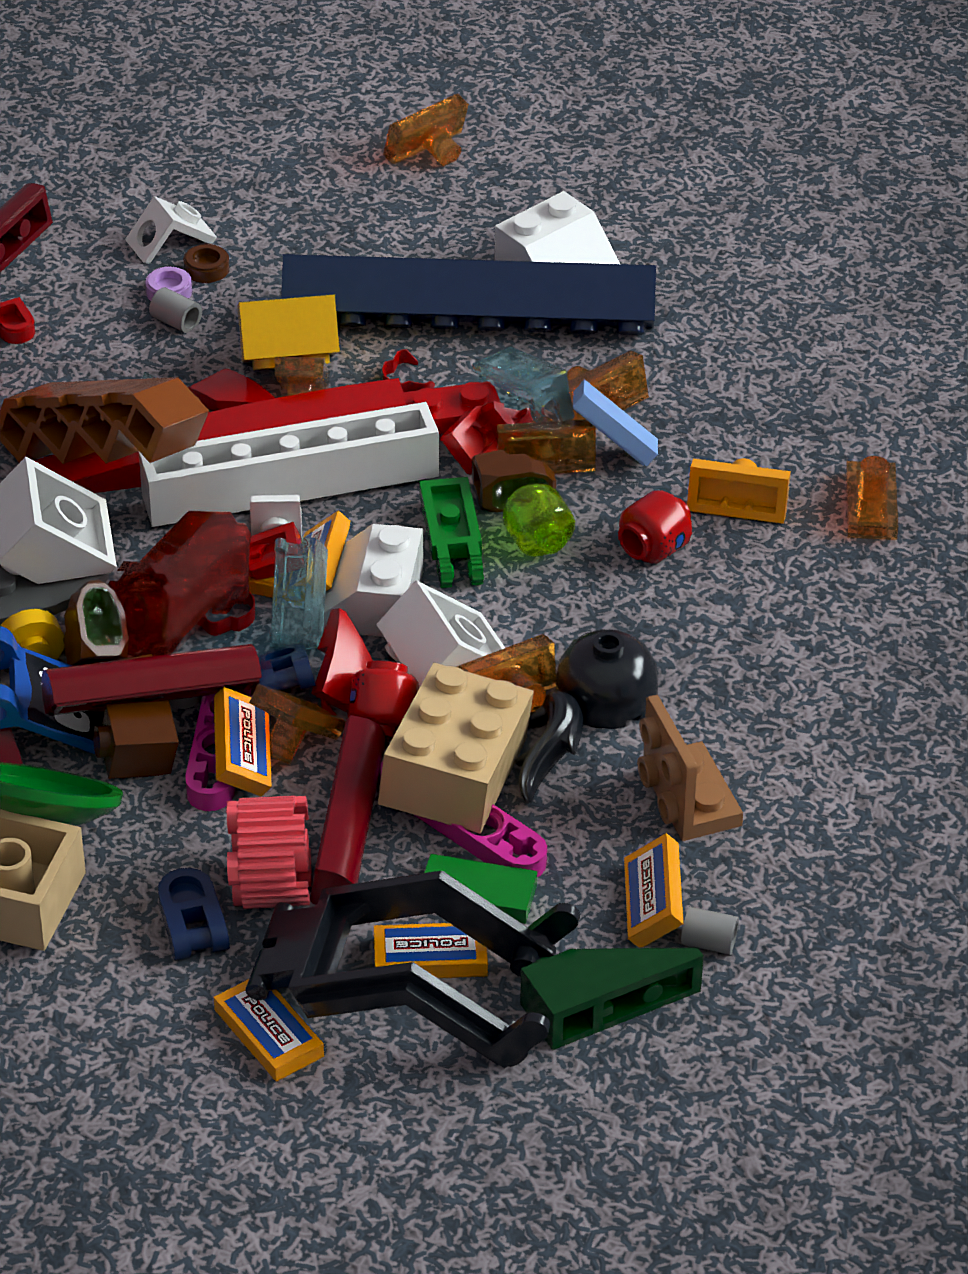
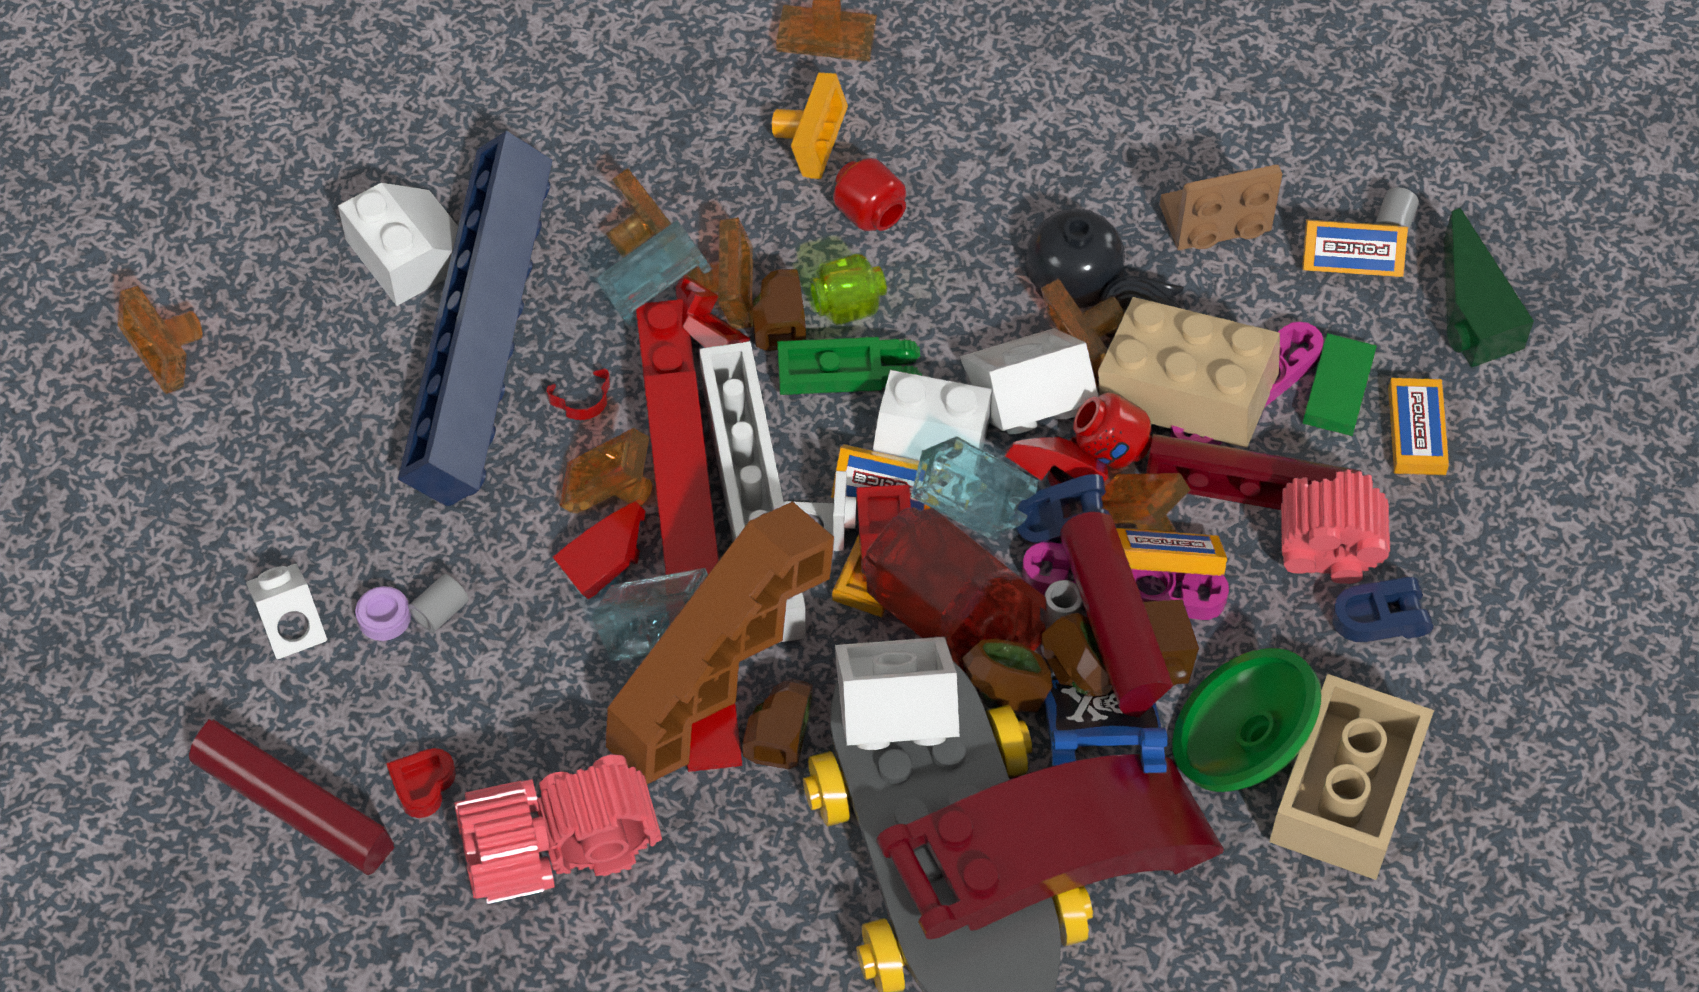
camera: 85 degrees left, 15 degrees up
(206, 263) = (346, 574): reddish brown tile -> none
(269, 1030) = (1514, 556): tile -> none
(288, 329) = (538, 475): yellow brick -> none
(308, 942) = (1451, 501): black piece -> none
(615, 423) = (722, 205): light blue tile -> none

